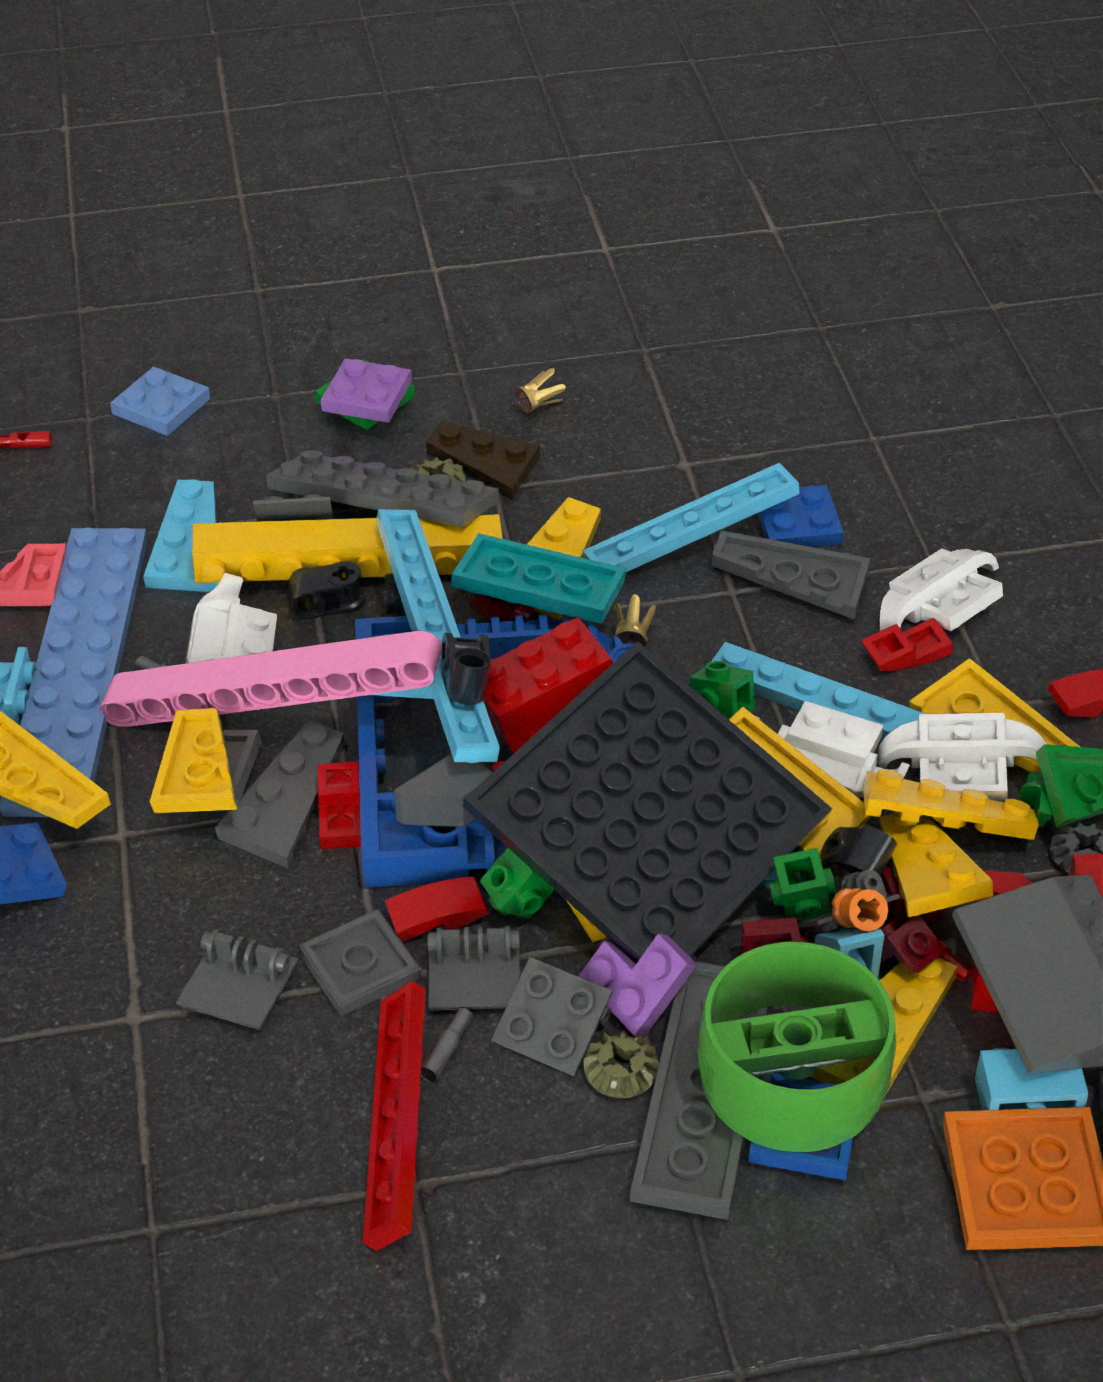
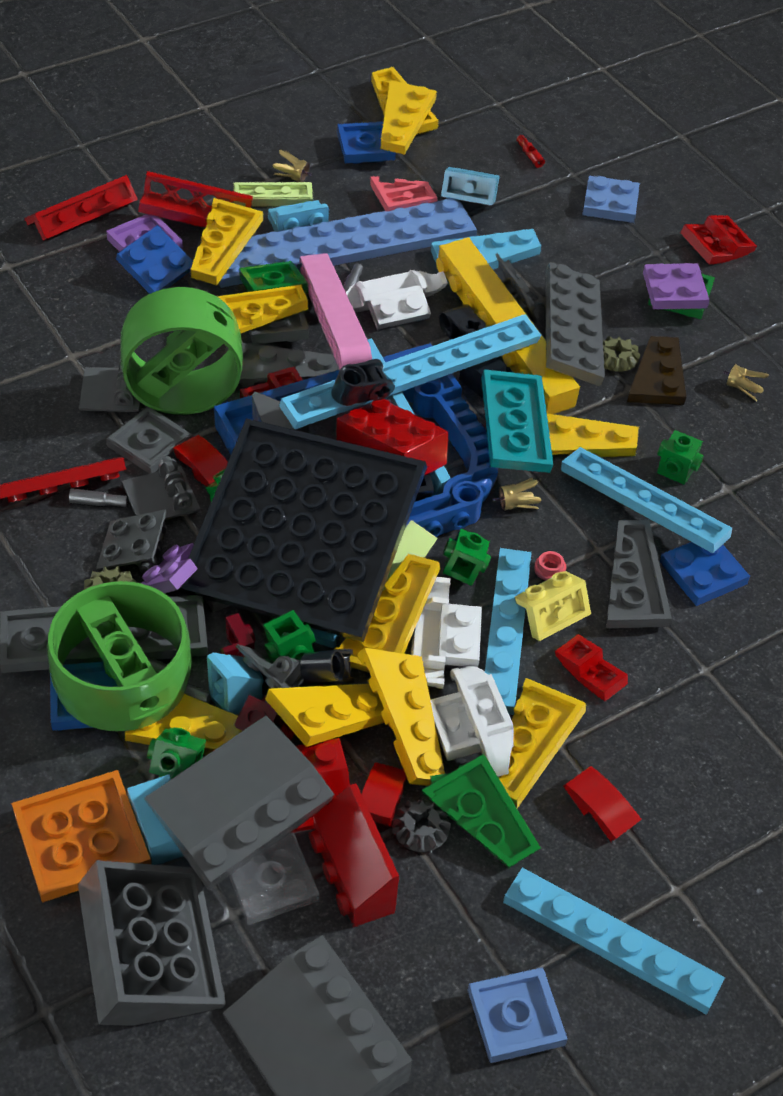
camera: 65 degrees right, 5 degrees up
(68, 505) = (470, 186): none -> medium azure brick
(128, 745) = (272, 276): none -> green plate
(271, 849) = (167, 378): none -> bright green cylinder
(290, 340) = (718, 239): none -> red slope
(637, 477) = (679, 456): none -> green brick
(751, 633) = (548, 564): none -> coral plate
(813, 641) = (555, 604): none -> light yellow bracket
(846, 909) = (245, 663): orange bush -> none
(943, 589) = (667, 675): white plate -> none
(944, 1042) = (174, 752): none -> green brick
(1032, 860) = (384, 792): none -> red slope

